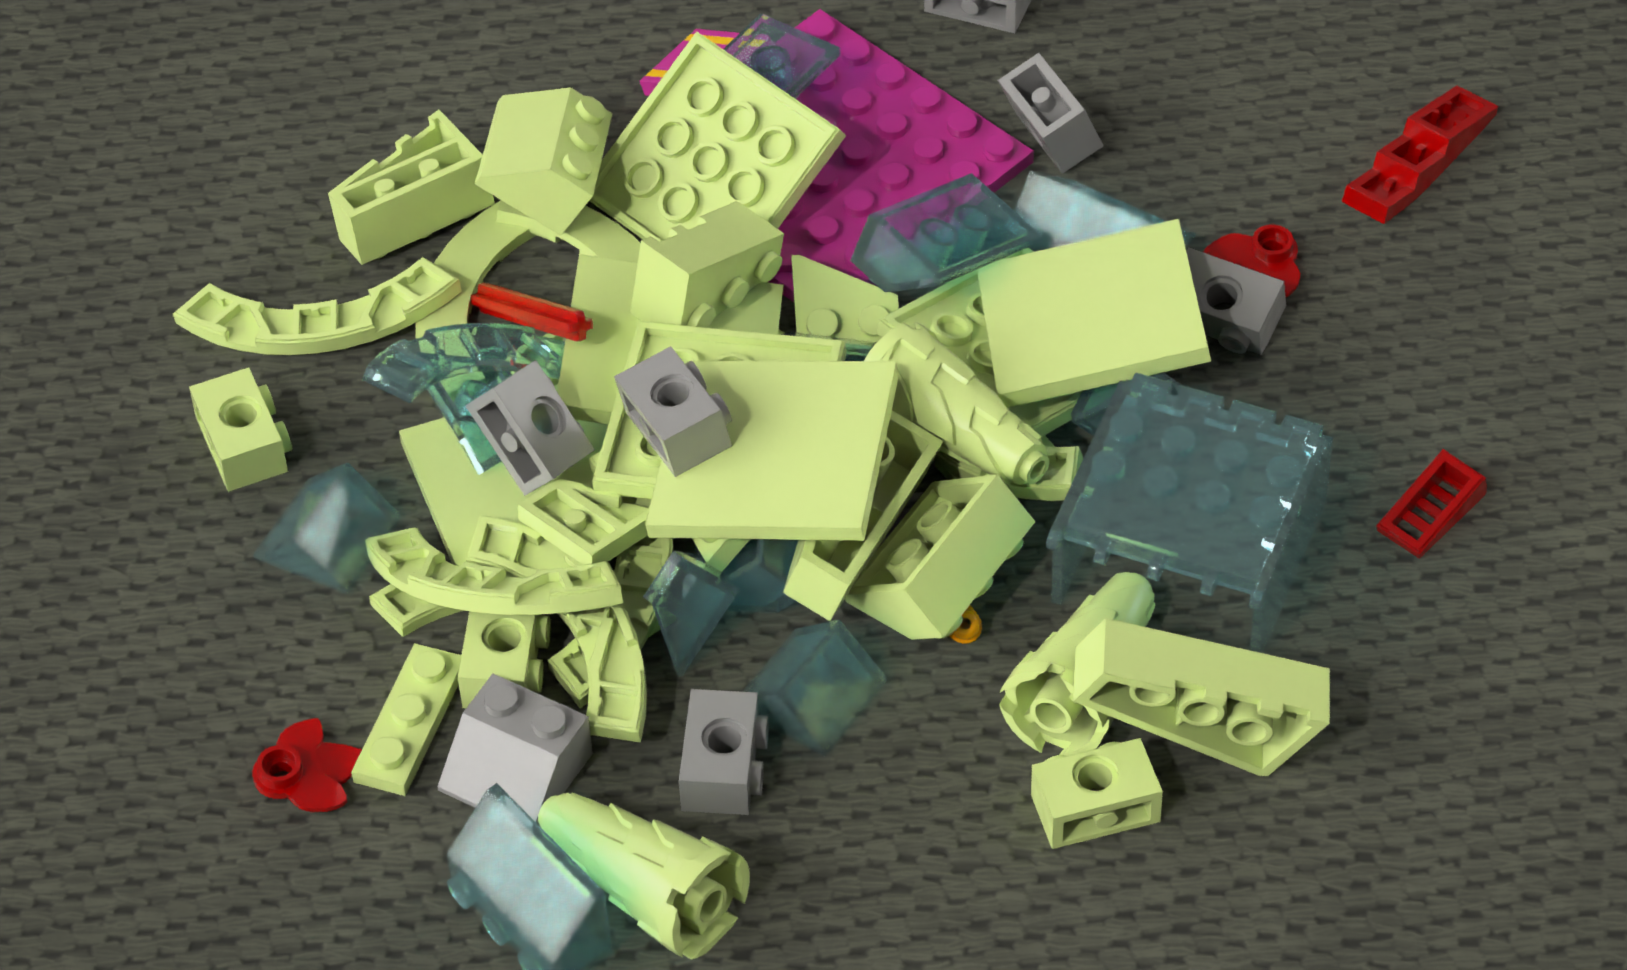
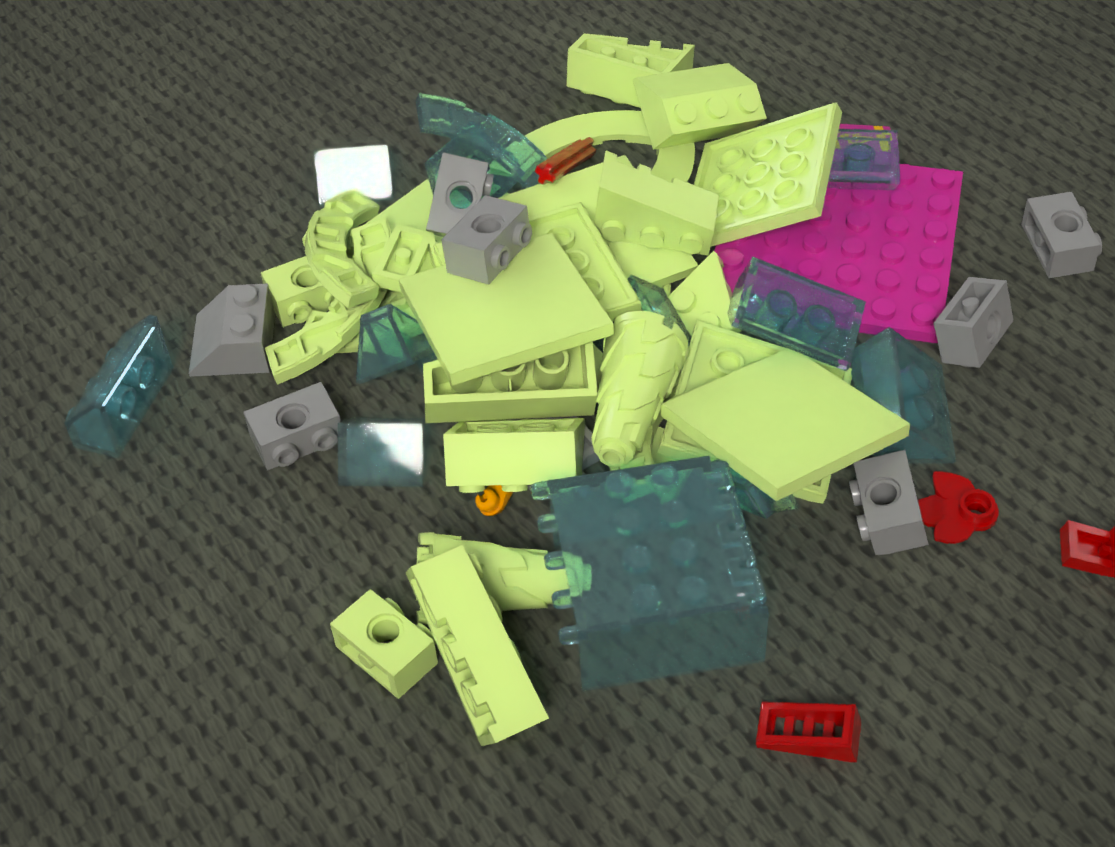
camera: 60 degrees right, 0 degrees up
(240, 428) = (390, 100): yellowish green brick -> none
(313, 767) = (174, 252): red plate -> none
(322, 325) = (509, 96): yellowish green tile -> none
(408, 720) = (207, 281): yellowish green plate -> none
(652, 870) = (166, 441): yellowish green cone -> none

